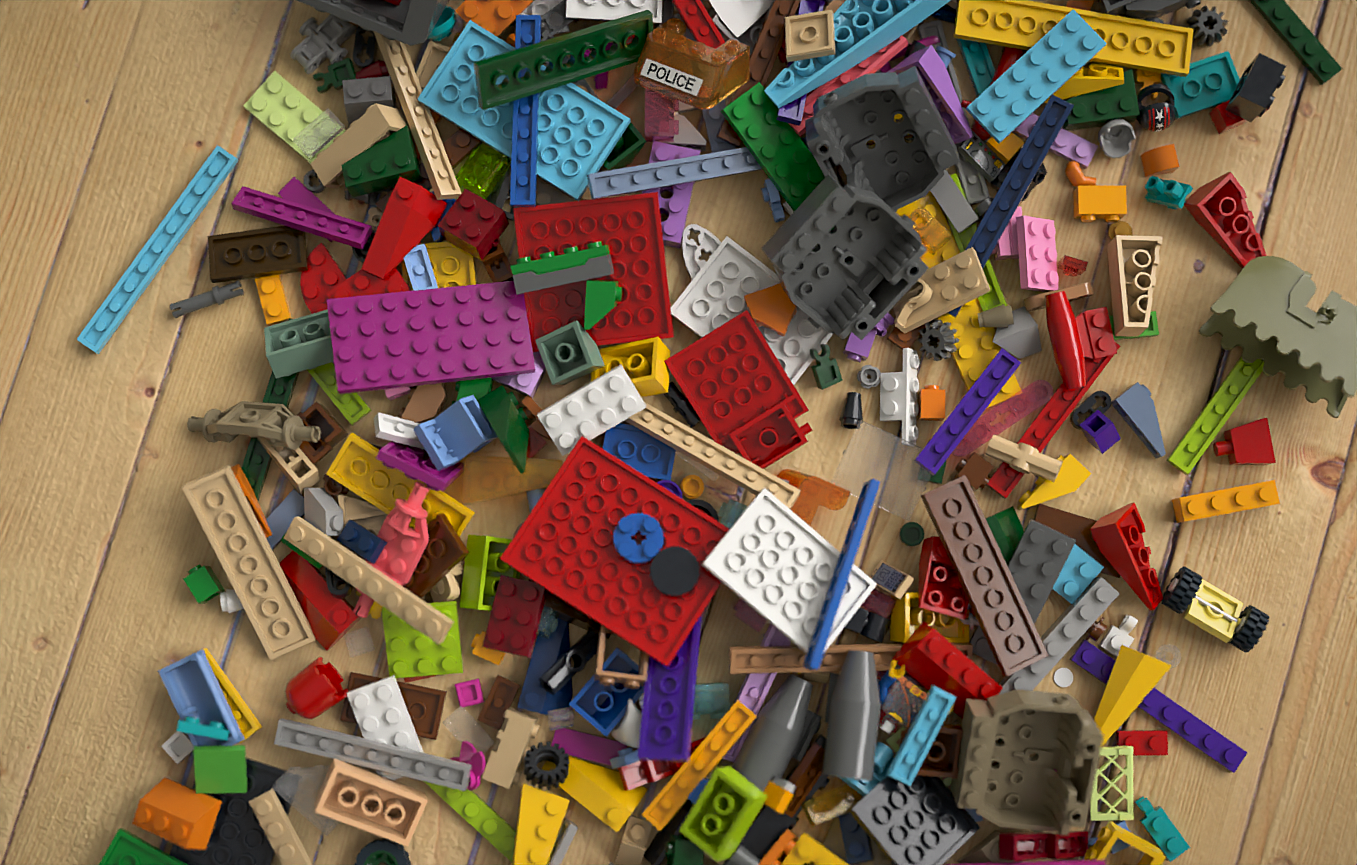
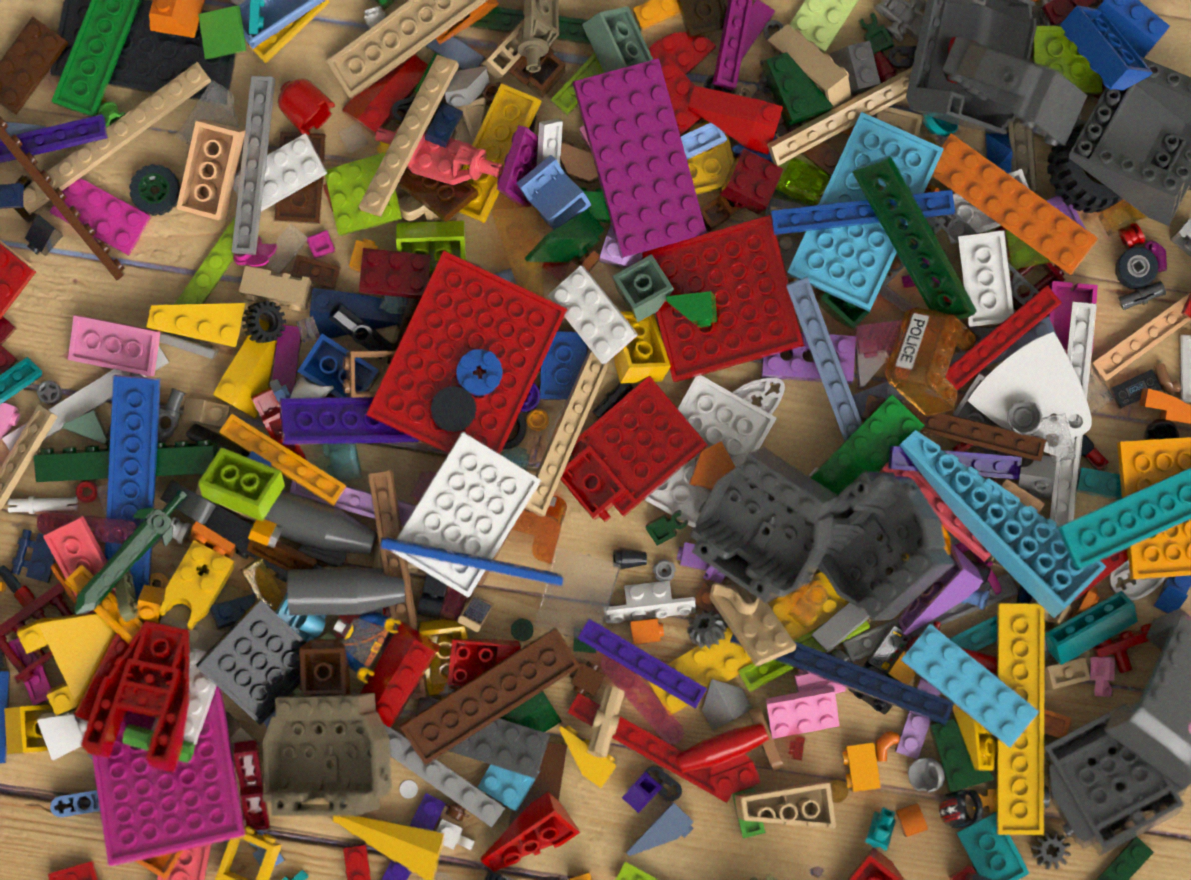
camera: 85 degrees right, 0 degrees up
(318, 133) = (816, 27): clear plate -> none
(563, 268) = (719, 268): piece -> none
(771, 195) = (822, 455): medium blue plate -> none
(809, 35) = (974, 465): tan tile -> none
(921, 735) = (335, 655): medium azure tile -> none
(996, 317) = (736, 681): dark tan cone -> none
(1128, 794) = (348, 854): yellowish green window -> none

